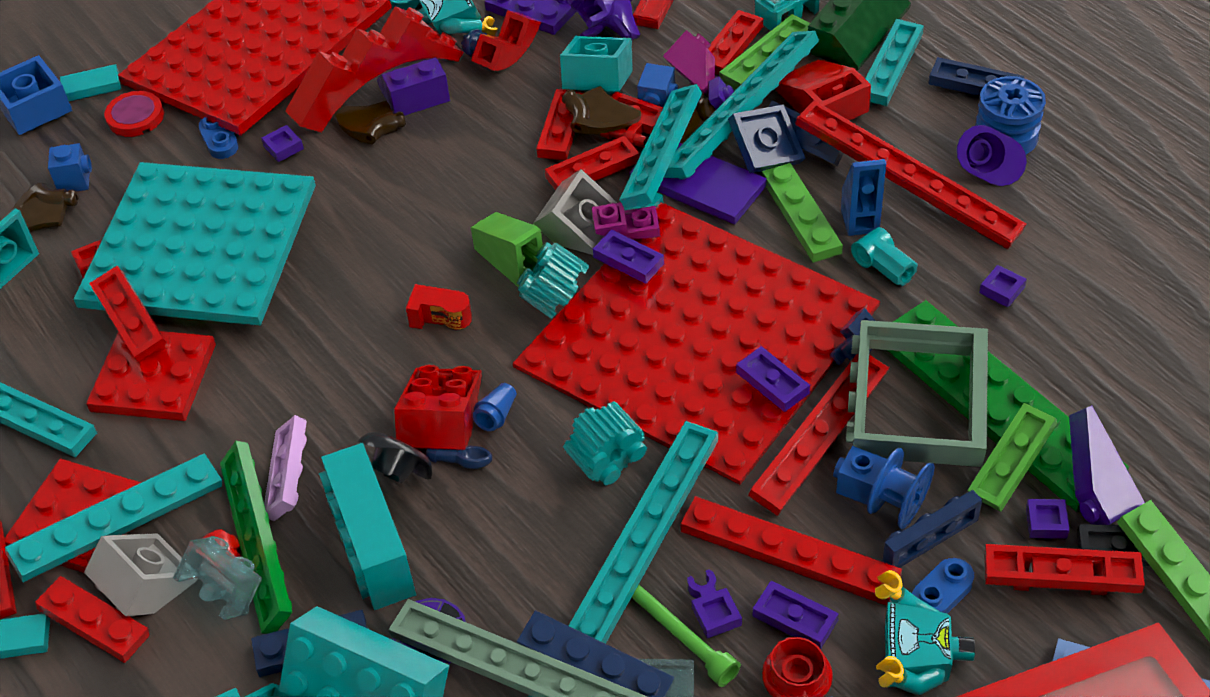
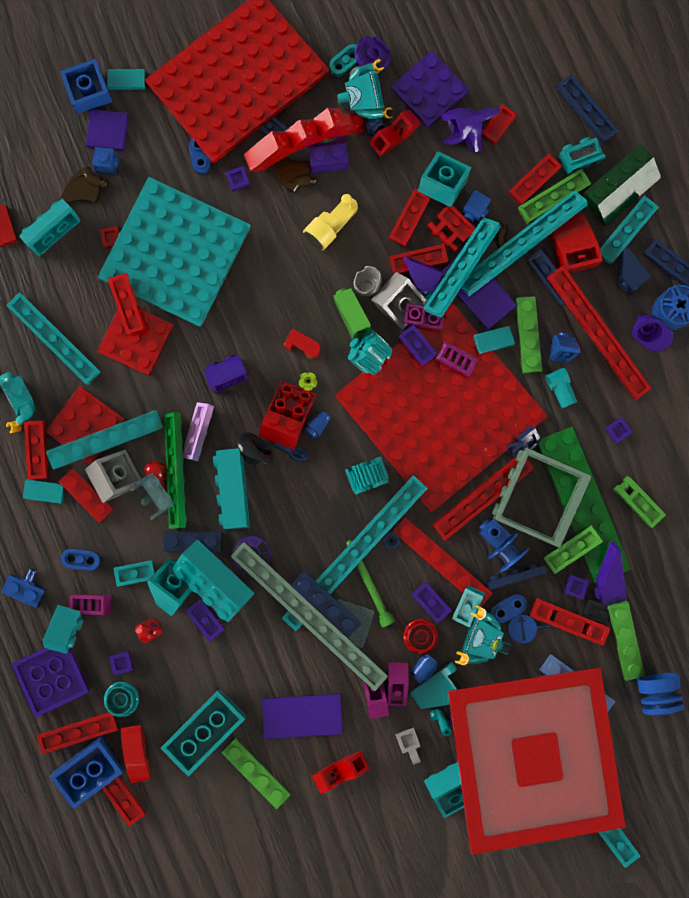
camera: 10 degrees right, 35 degrees up
(66, 132) = (107, 129): none -> dark purple tile
(134, 113) = (150, 117): tile -> none
(320, 374) = (226, 373): none -> dark purple slope
(434, 158) = (326, 226): none -> light yellow piece
(462, 354) = (308, 376): none -> lime plate
(523, 202) = (368, 281): none -> light grey hair
(598, 112) = (433, 221): dark brown arm -> none
(607, 168) = (423, 275): none -> dark purple slope
(680, 532) = (387, 544): none -> dark blue plate
(681, 250) = (447, 346): none -> magenta slope
(693, 60) = (504, 198): magenta slope -> none
(713, 608) = (393, 587): dark purple plate -> none
(718, 92) = (512, 228): dark purple plate -> none
(748, 225) = (494, 340): none -> teal tile
(766, 138) = (526, 278): dark blue plate -> none
(773, 379) = (468, 459): dark purple plate -> none
(862, 607) = (466, 606): none -> teal plate
(923, 101) = (631, 272): none -> dark blue slope
(988, 615) = (523, 628): none -> blue piece
(1090, 369) = (640, 502): none -> bright green plate

